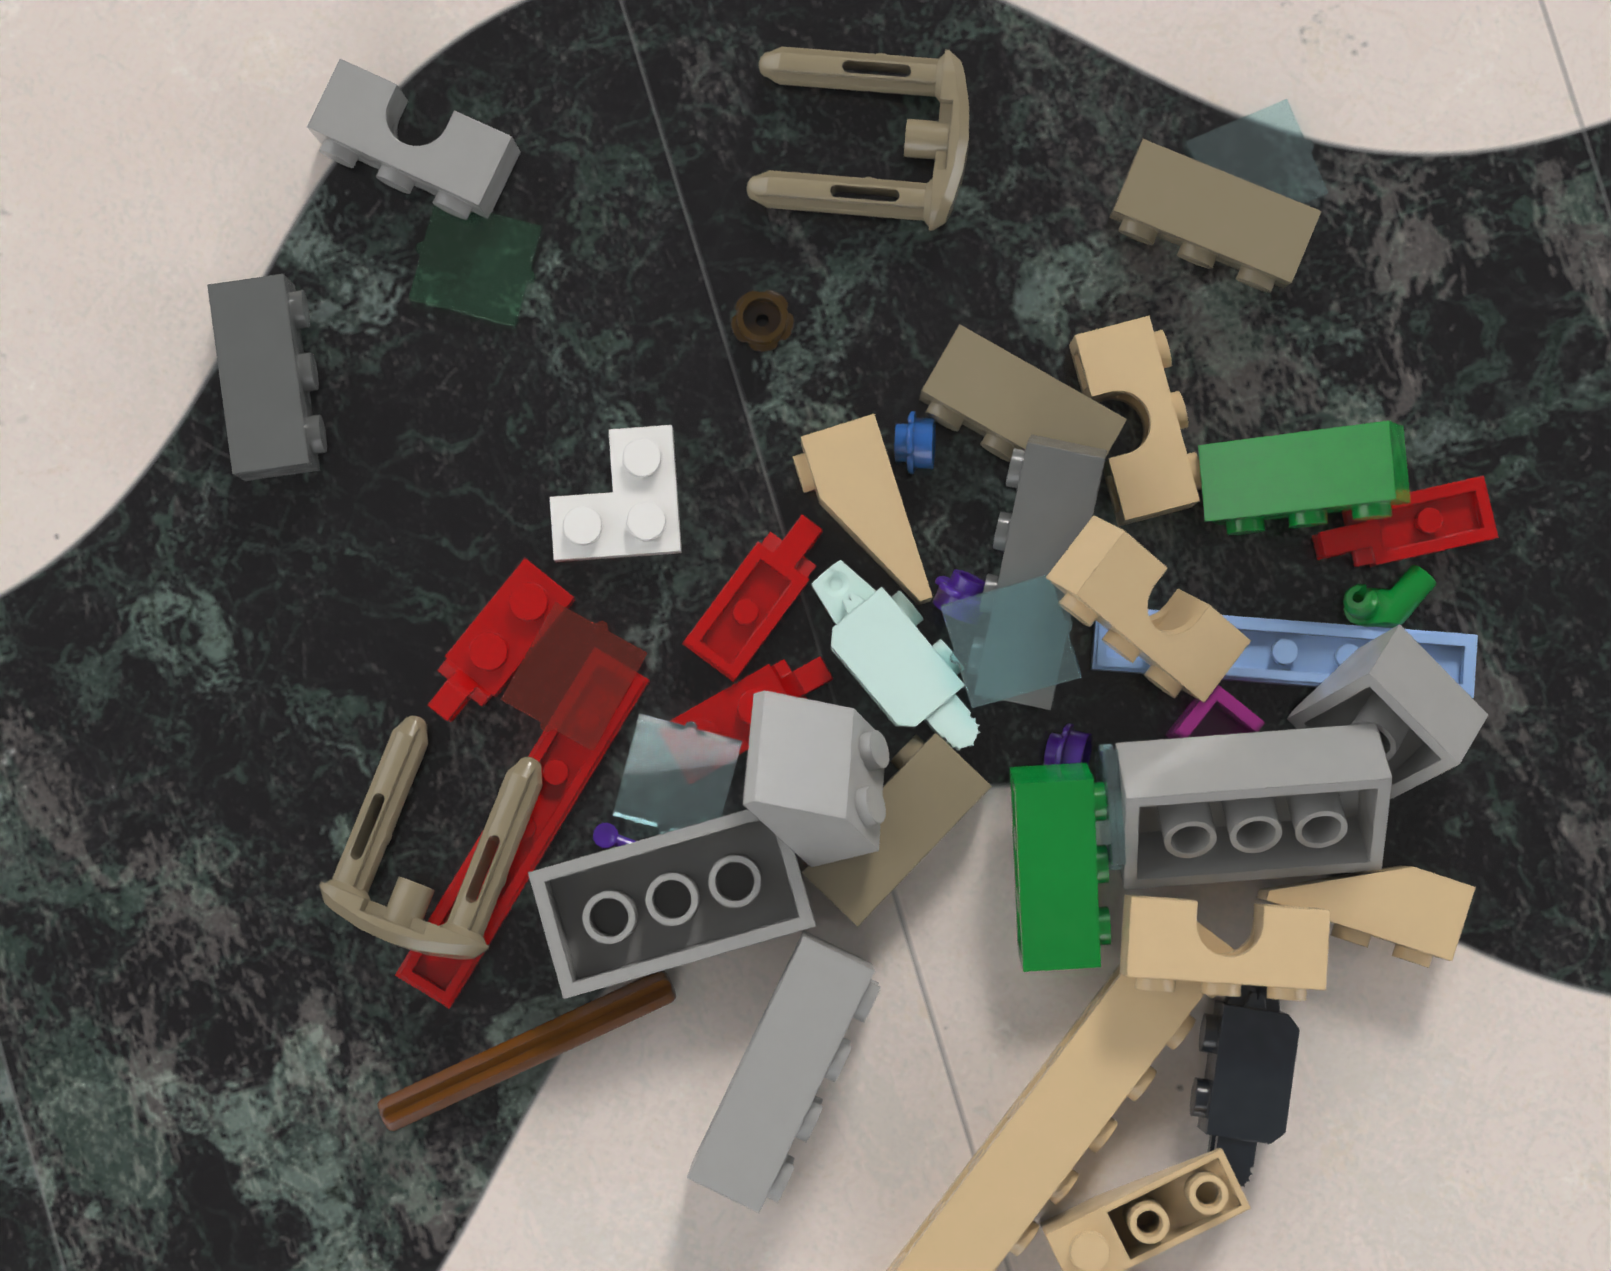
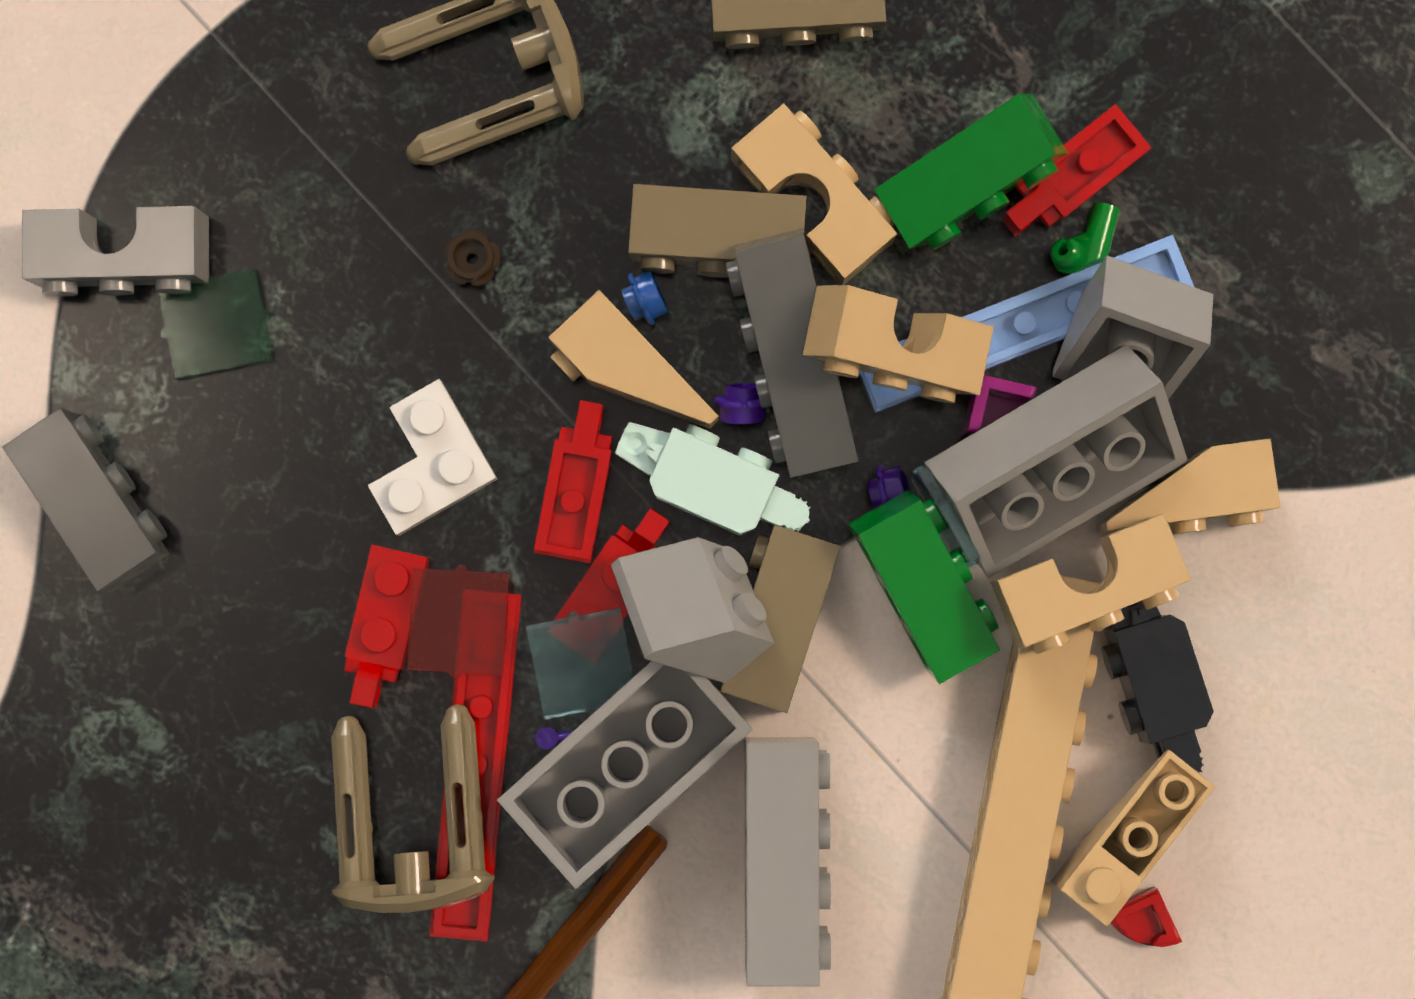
camera: 25 degrees left, 0 degrees up
(1011, 641) = (799, 420): clear light blue piece -> none

